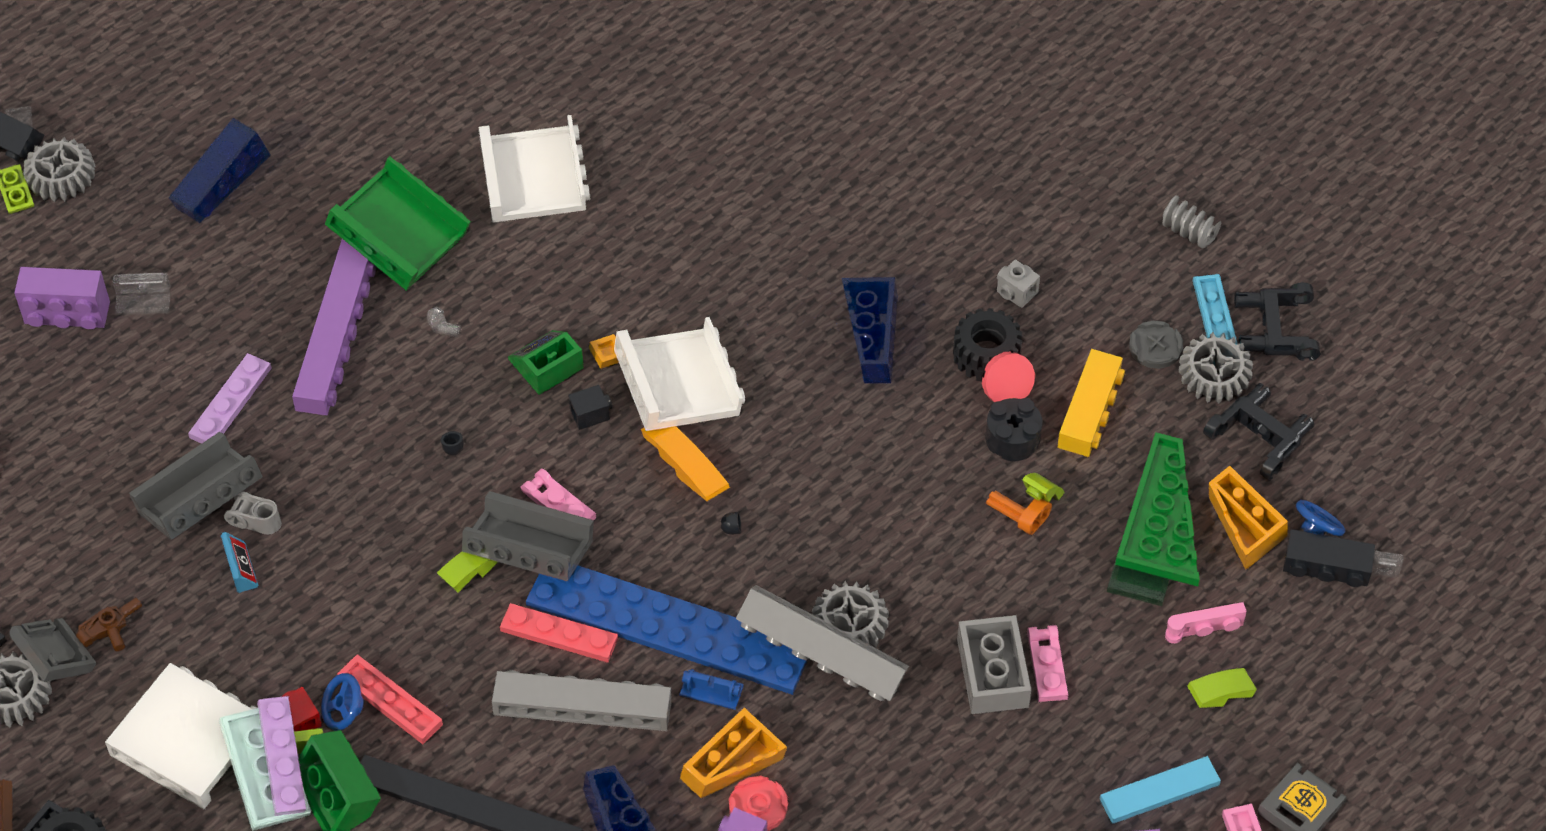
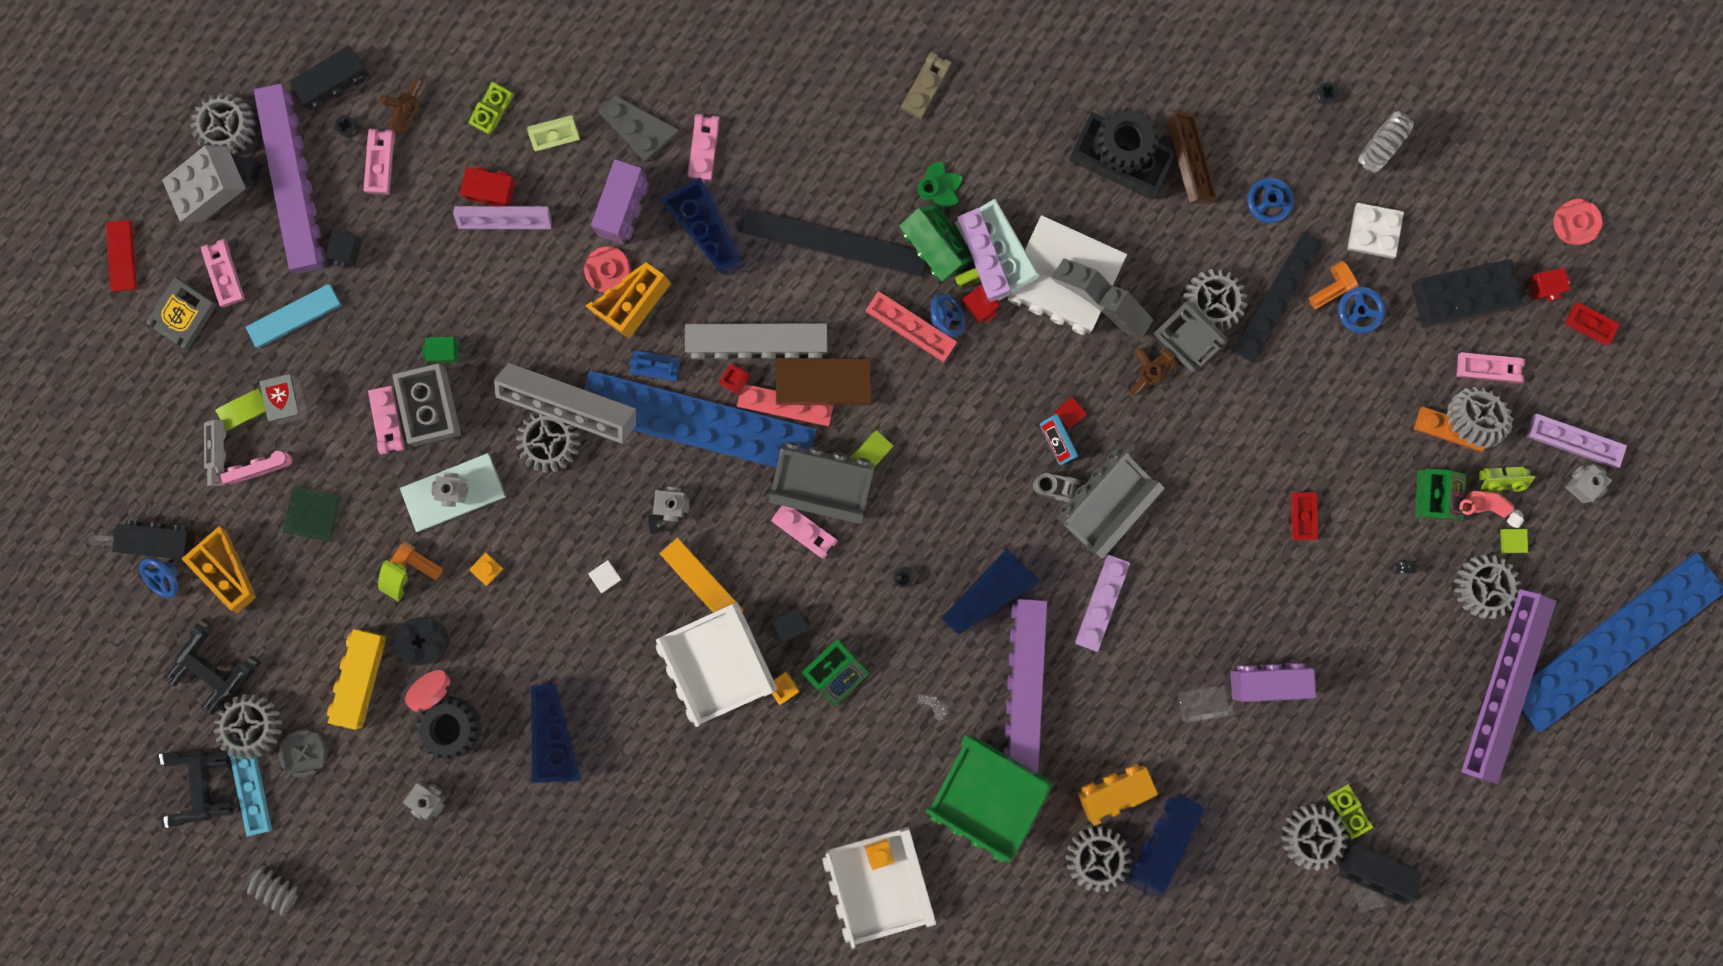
camera: 175 degrees right, 30 degrees up
(132, 678) = (1110, 300): none -> dark grey arch
(219, 591) = (1070, 413): none -> red tile
(261, 221) = (1116, 793): none -> light orange wedge
(307, 176) = (1110, 877): none -> light grey gear
(356, 415) = (994, 588): none -> clear blue wedge
(504, 644) = (823, 381): none -> reddish brown tile
(527, 195) = (879, 854): none -> light orange plate
(615, 663) = (734, 379): none -> red tile
(710, 535) = (663, 499): none -> light grey brick
(797, 478) = (605, 576): none -> white tile
(936, 498) = (486, 569): none -> light orange plate
(969, 569) = (457, 493): none -> light grey brick
(970, 579) = (483, 490): none -> light aqua tile
(974, 727) = (441, 350): none -> green brick
(1160, 521) = (293, 560): green wing -> none
(1170, 689) = (284, 399): none -> piece
(1258, 646) = (214, 451): none -> light grey hinge

